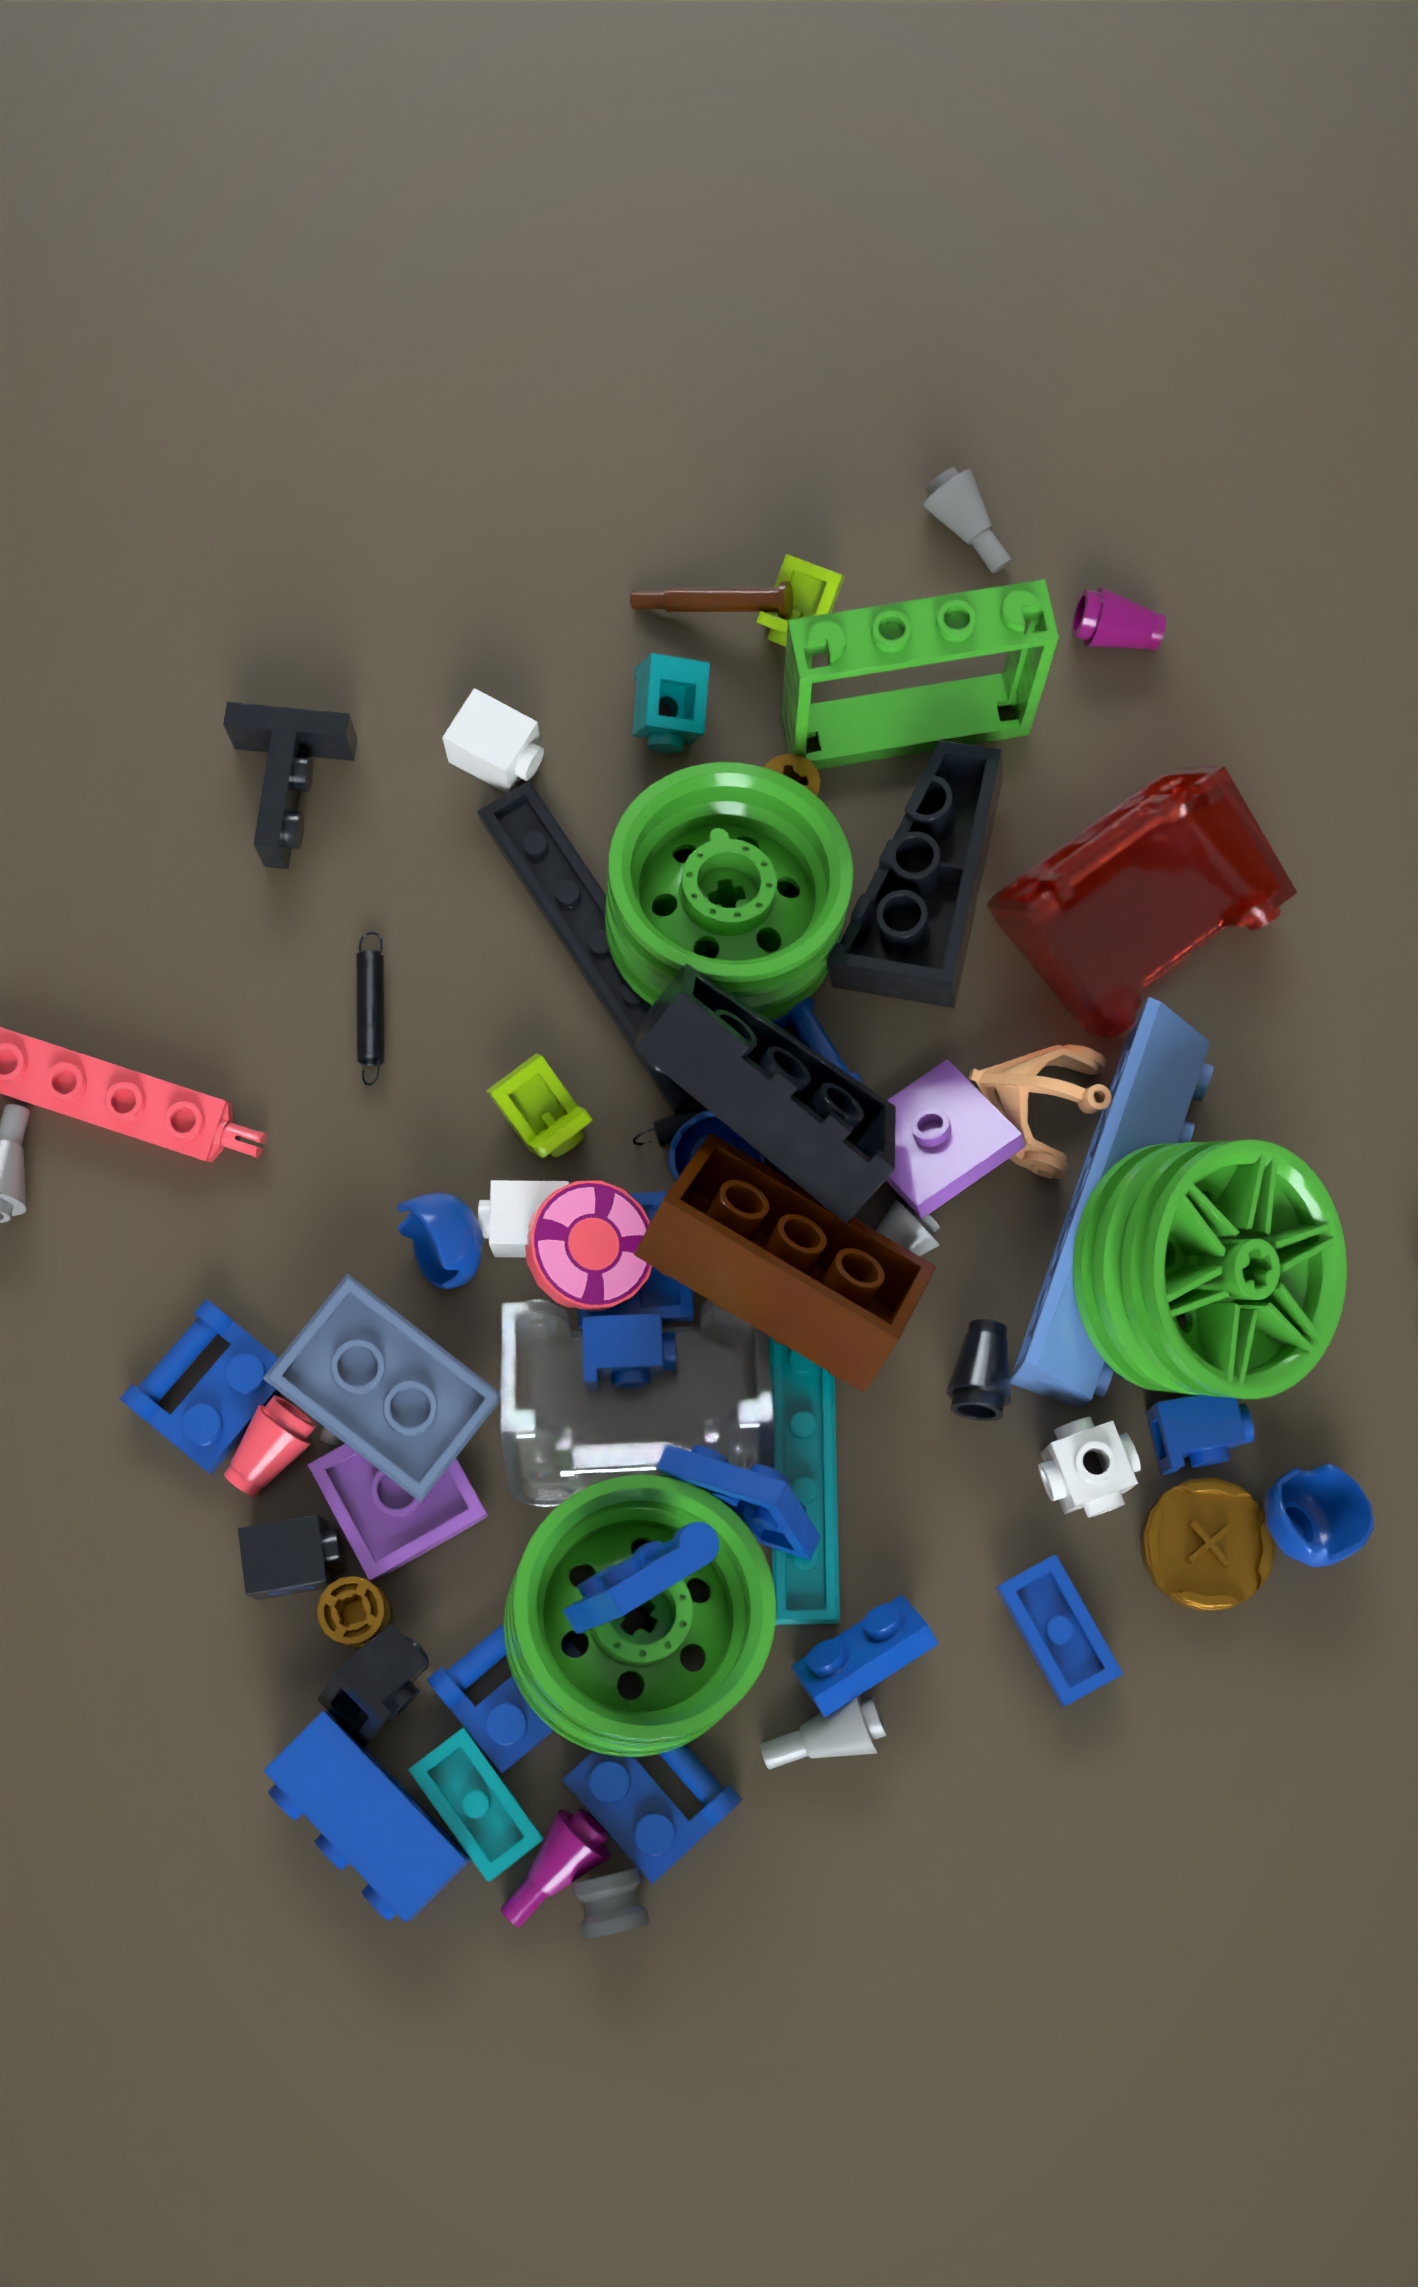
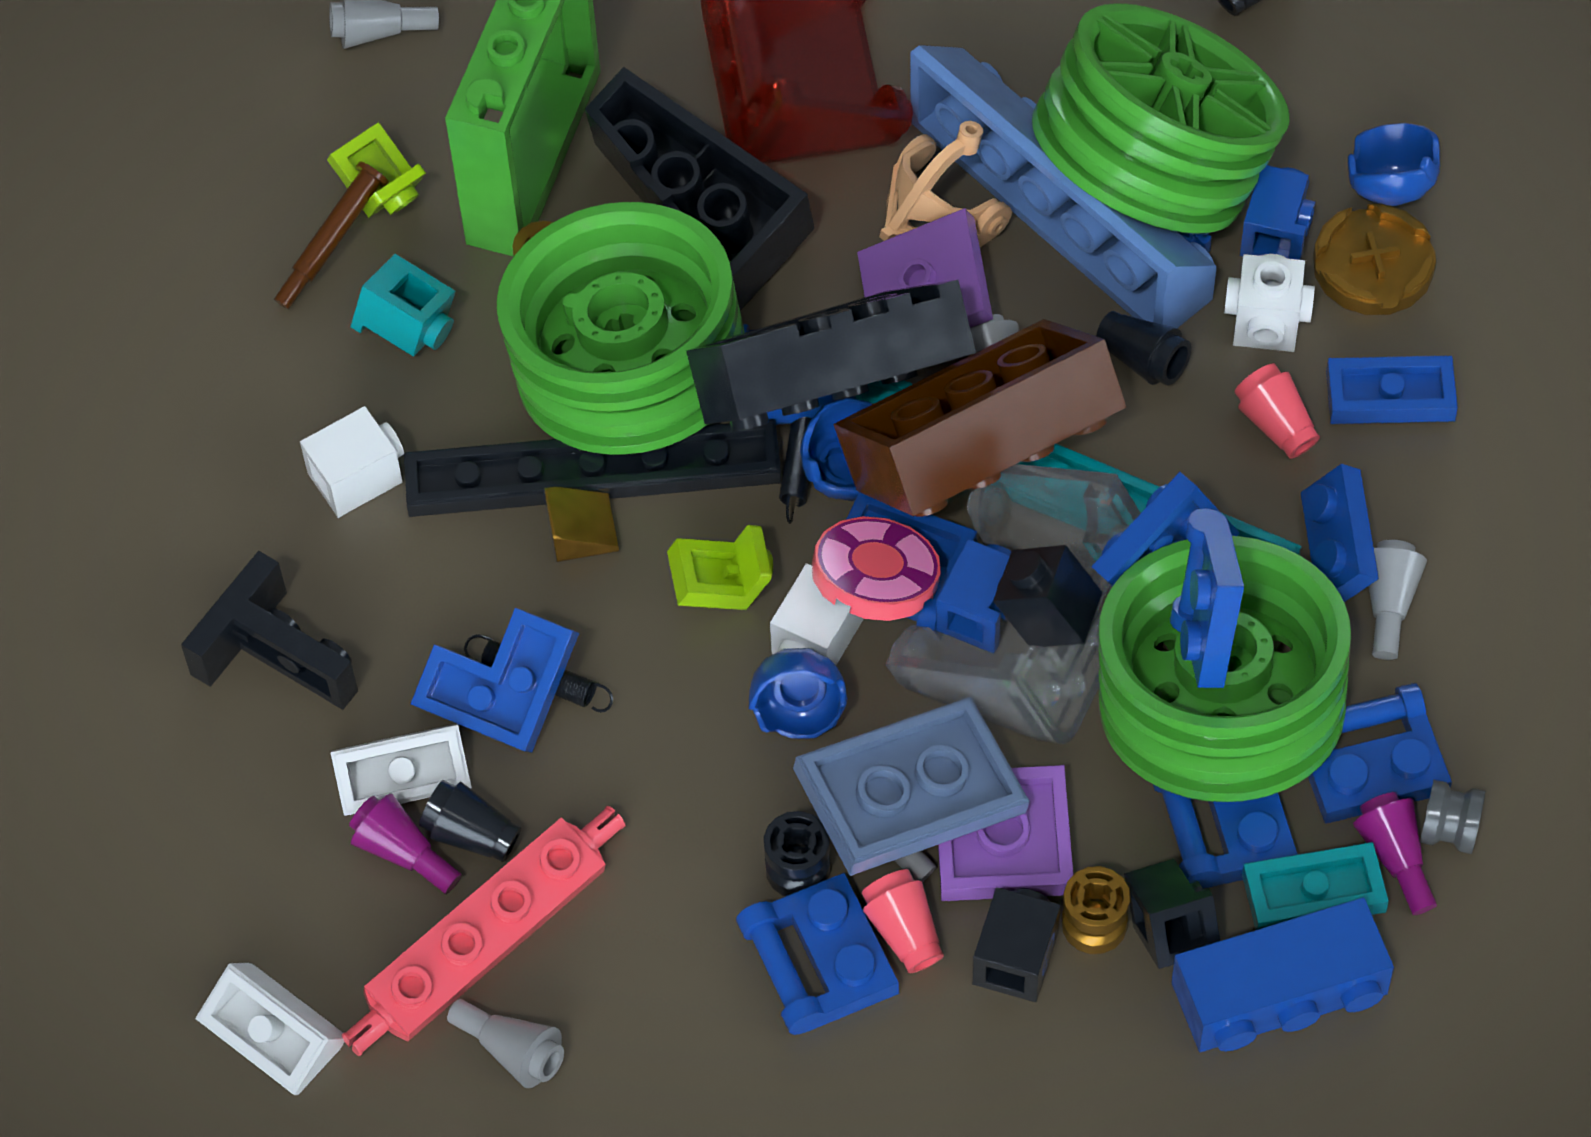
camera: 60 degrees left, 15 degrees down
(148, 970) = (390, 833): none -> magenta cone
(190, 1026) = (468, 822): none -> black cone
(225, 942) = (400, 765): none -> white slope
(288, 1322) = (796, 867): none -> black wheel
(321, 990) = (509, 697): none -> blue plate
(535, 963) = (580, 523): none -> pearl gold slope
(626, 1417) = (1048, 596): none -> black brick
(976, 1532) = (1277, 409): none -> coral cone

